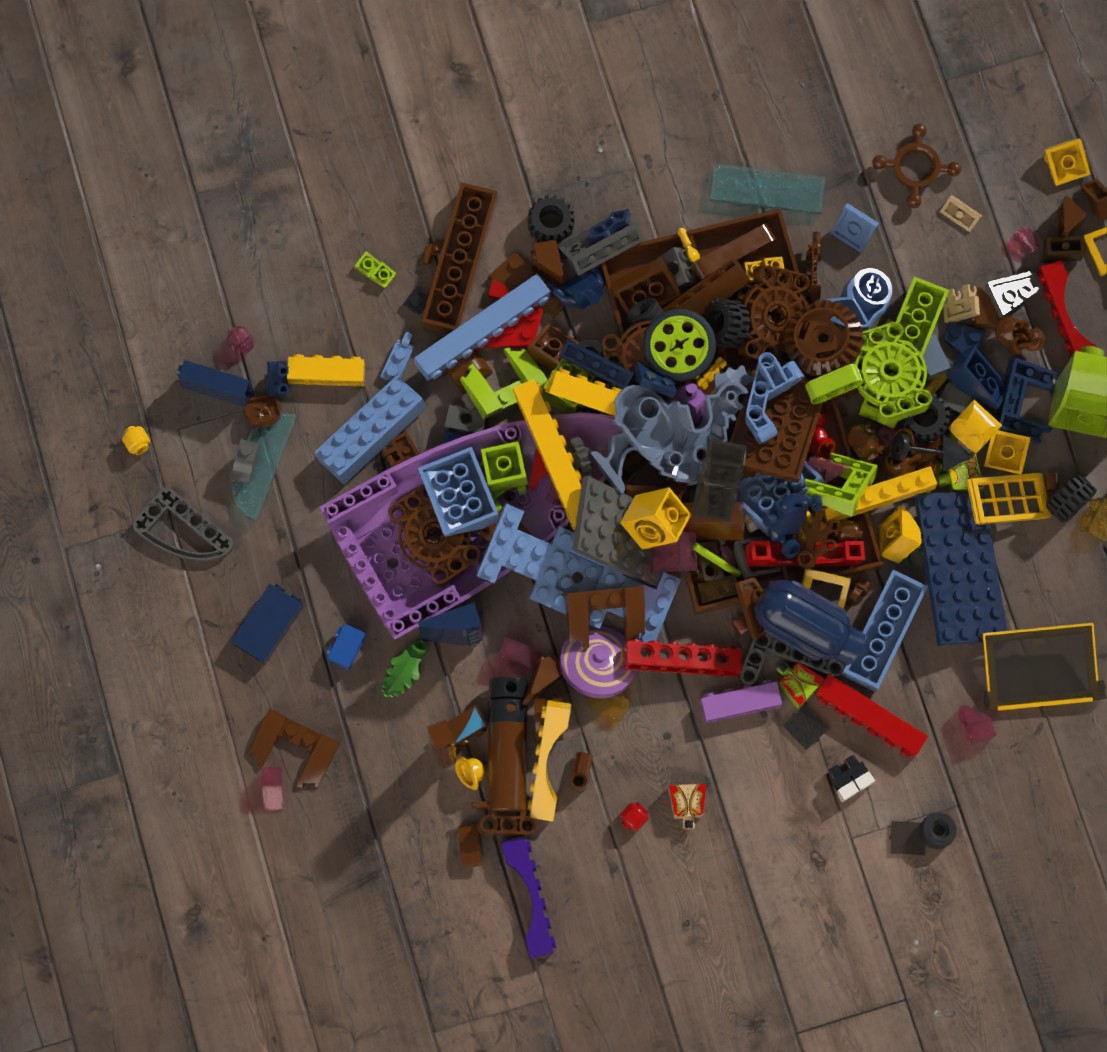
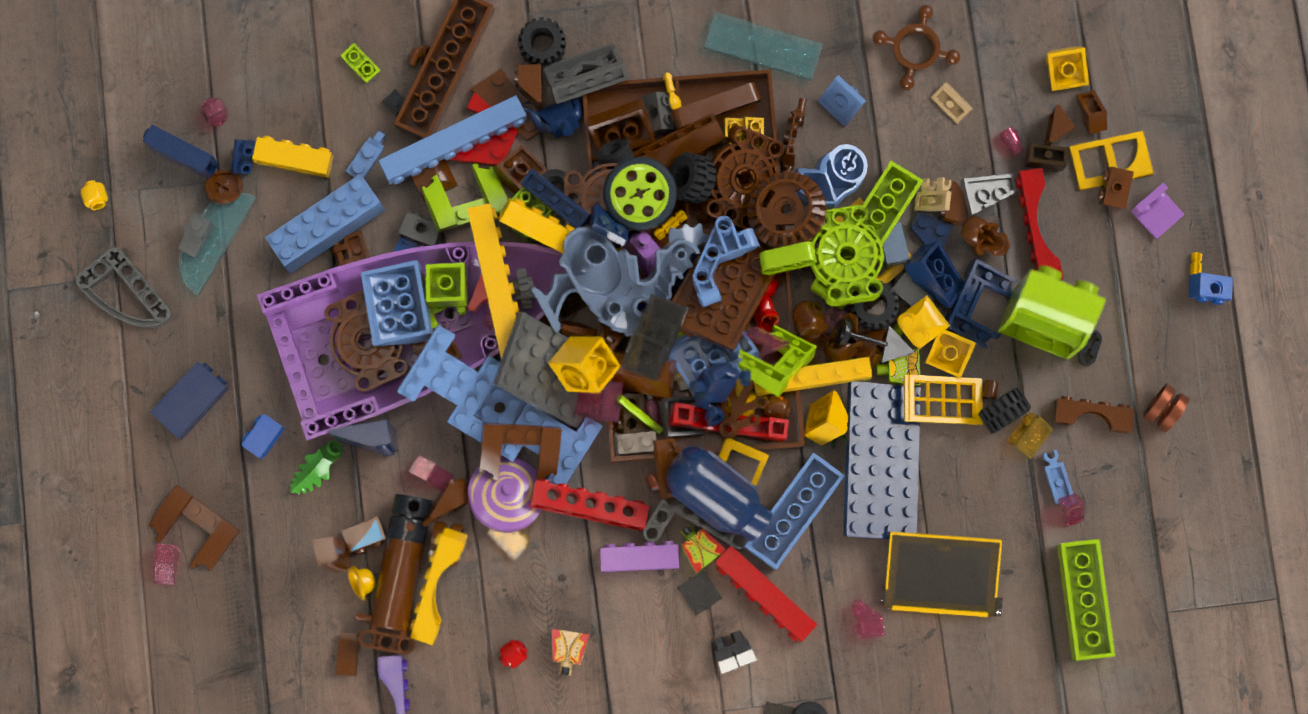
camera: 10 degrees right, 5 degrees up
(581, 770) = (470, 597): reddish brown piece -> none
(605, 229) = (603, 55): dark blue tile -> none
(859, 588) = (778, 463): reddish brown piece -> none

